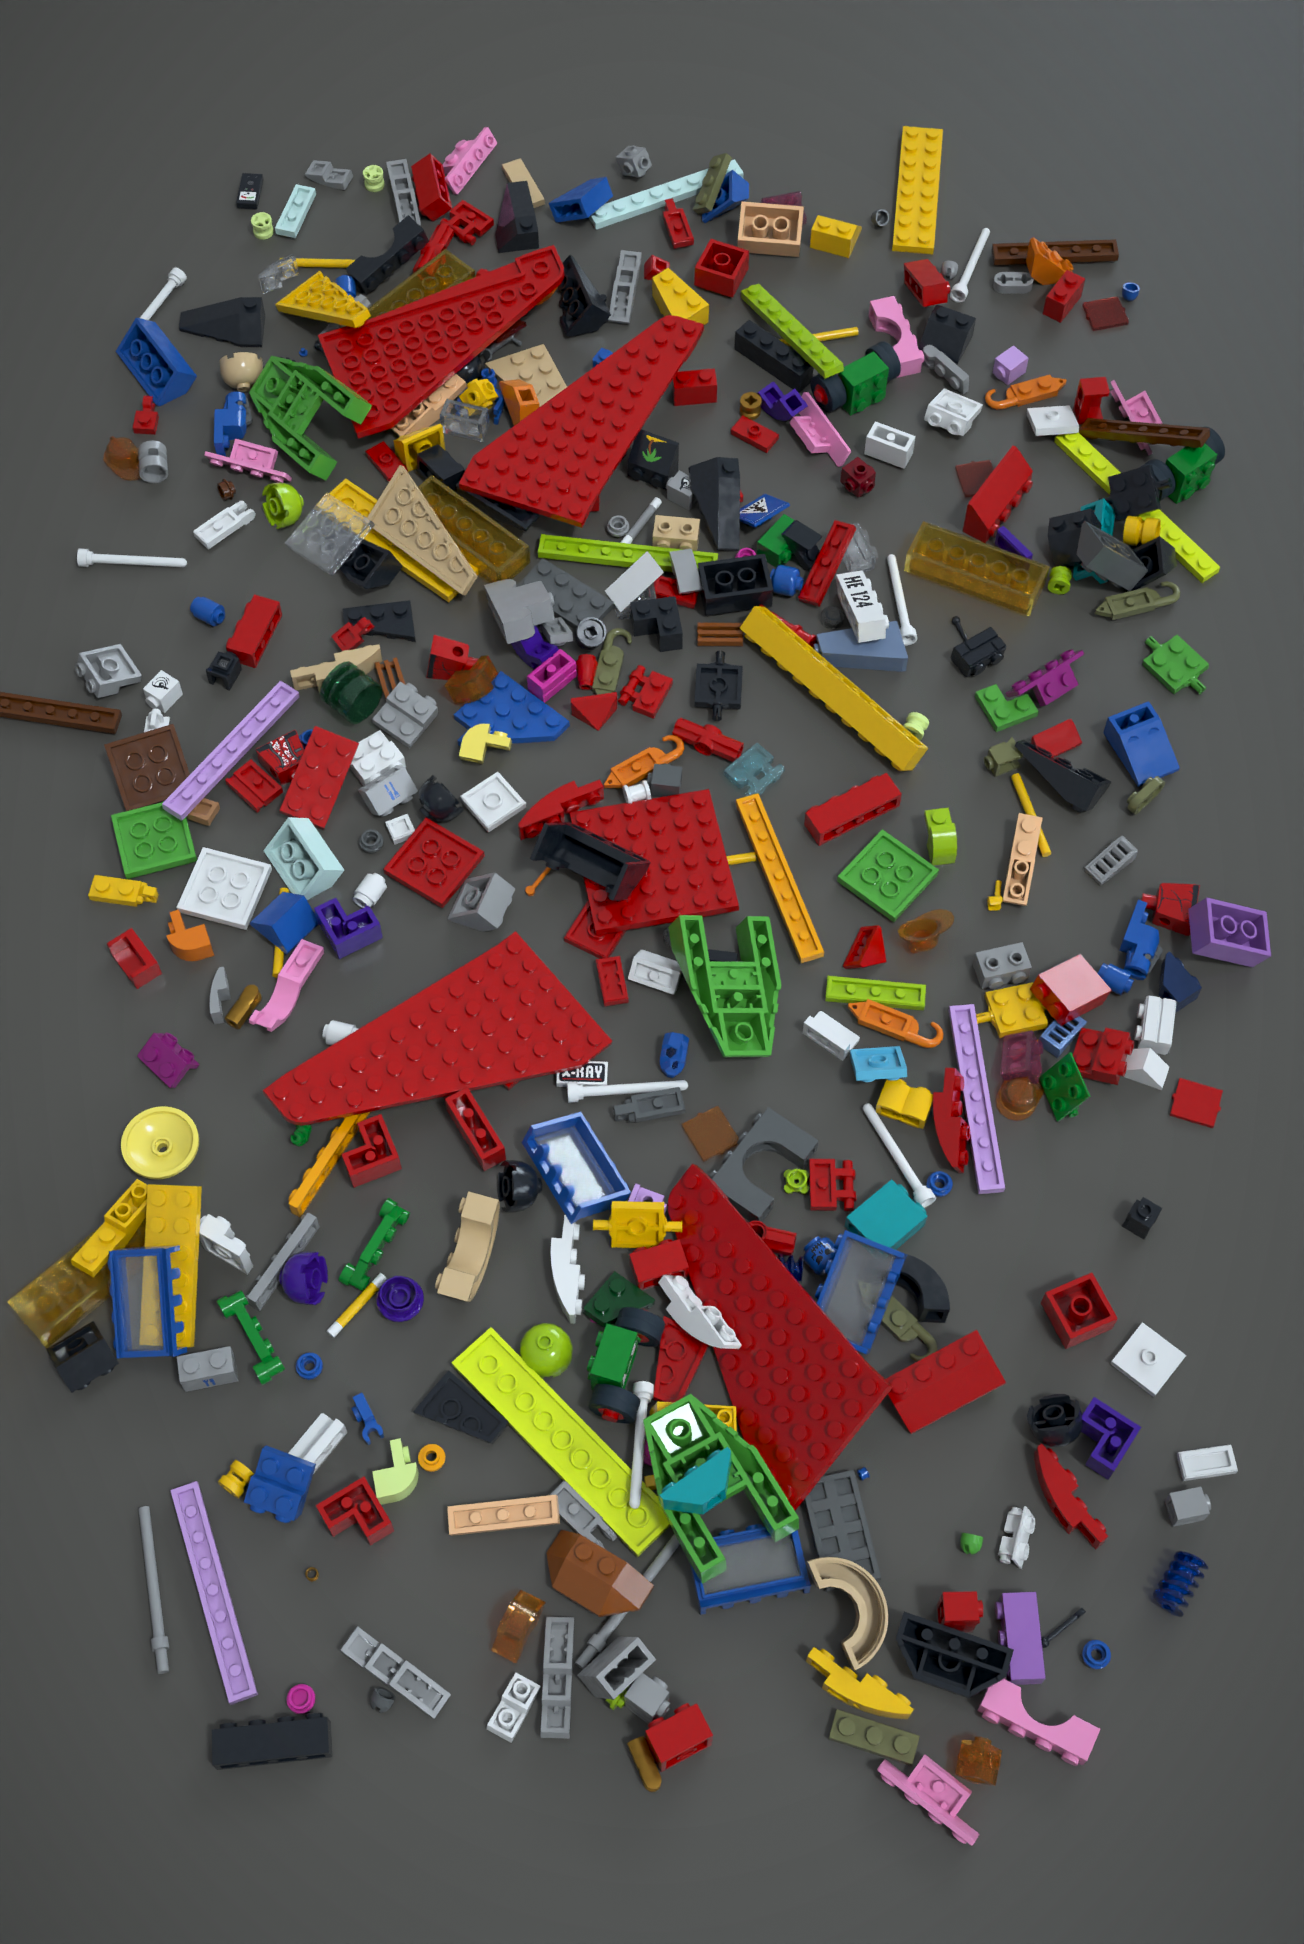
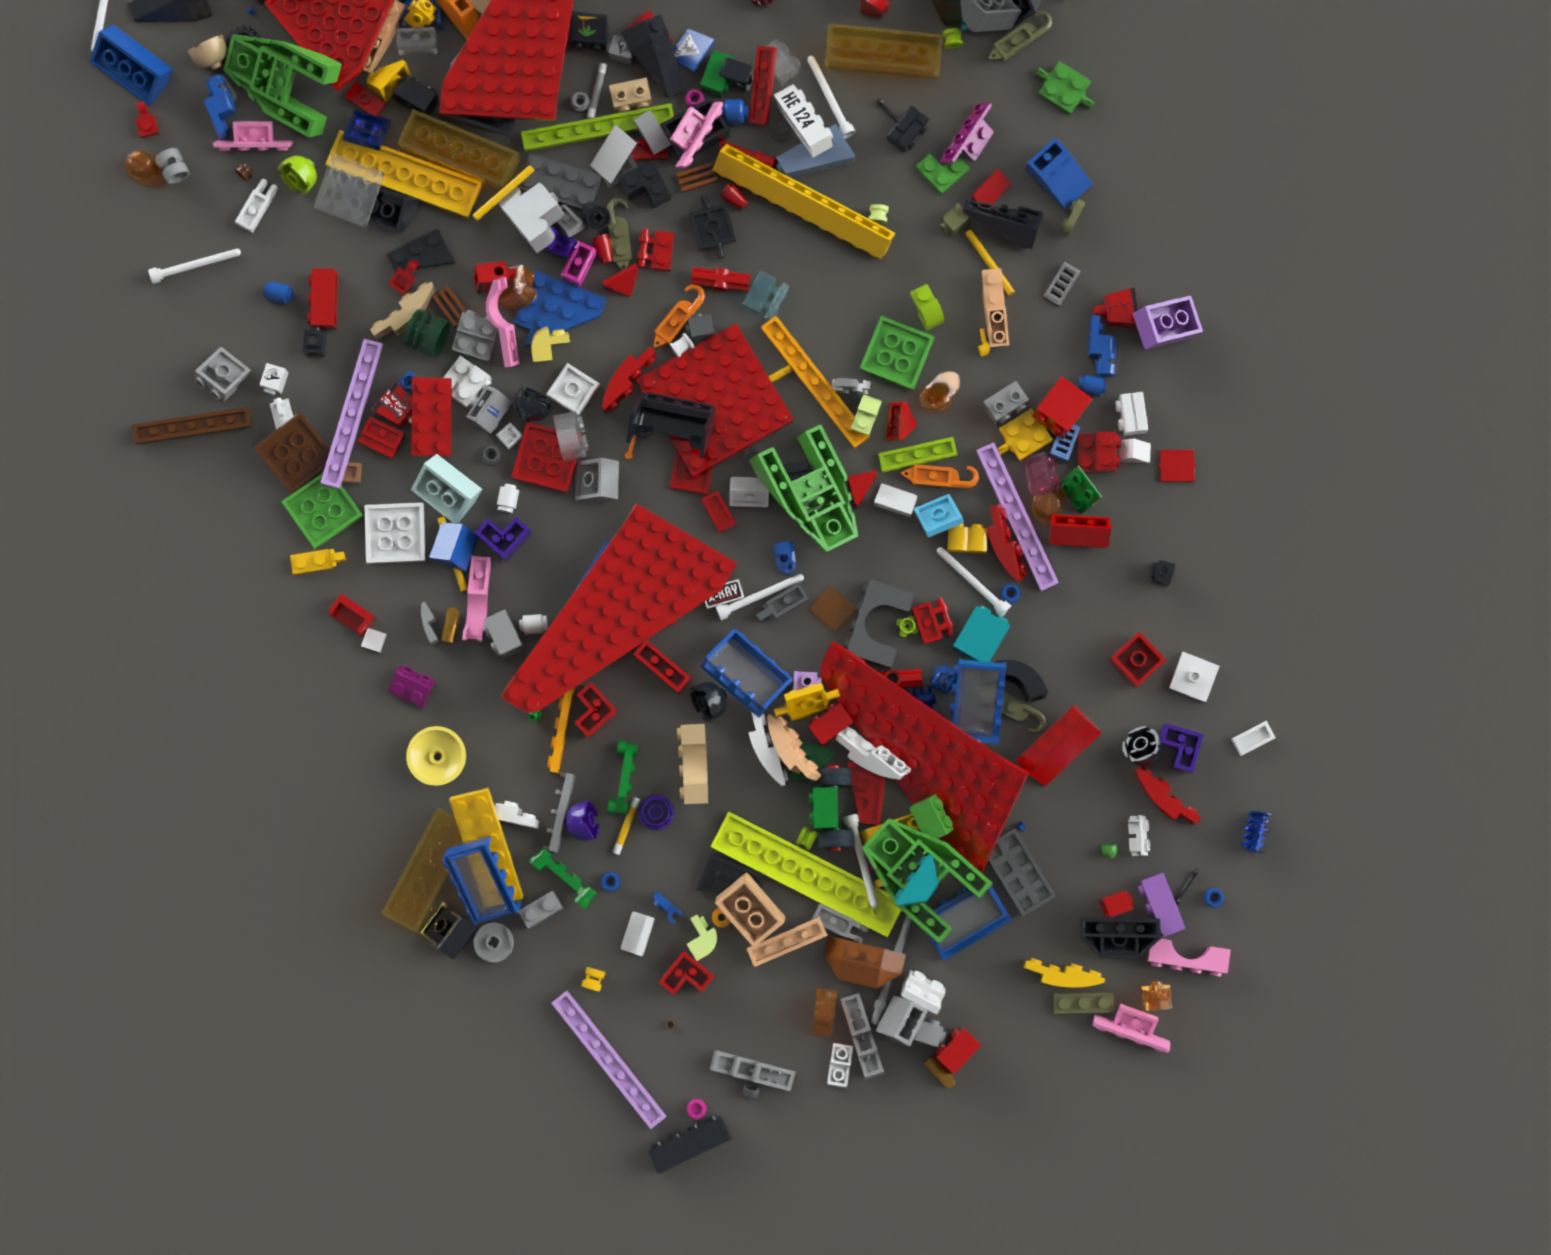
camera: 20 degrees left, 20 degrees up
(116, 1231) = (437, 837): yellow slope -> none
(122, 1380) = (504, 947): none -> light grey plate
(147, 995) = (374, 640): none -> white tile
(159, 1641) = (586, 1106): light grey bar -> none
(190, 943) = (388, 589): orange brick -> none
(279, 1484) = (625, 974): blue plate -> none
(299, 1030) = (504, 634): none -> light grey brick
(368, 483) = (367, 130): none -> clear blue plate
(413, 526) = (415, 163): tan wing -> none
(440, 717) = (506, 329): none -> bright pink piece
(468, 839) = (570, 437): none -> clear brick
(470, 1454) = (750, 909): none -> light nougat brick
(497, 580) = (503, 192): none -> yellow bar
(546, 1349) = (772, 813): lime cylinder -> none
(577, 1393) = (806, 838): none -> lime wheel
(595, 1272) = (787, 747): none -> light nougat slope
(660, 1640) = (923, 991): none -> white plate
(728, 574) = (692, 131): none -> bright pink bracket
(748, 1413) = (931, 817): none -> bright green brick
(754, 662) = (734, 196): none -> red cone
(795, 1002) = (860, 485): none -> red slope
(817, 888) = (845, 385): none -> light grey plate
(828, 926) = (866, 415): none -> yellowish green brick
(852, 808) = (852, 304): red brick -> none
(868, 1601) = (1059, 927): tan brick -> none
(1007, 541) = (906, 19): dark purple tile -> none
(1050, 1135) = (1079, 531): none -> red brick
(1177, 982) = (1138, 375): dark blue slope -> none
(1187, 1506) = (1248, 775): light grey brick -> none

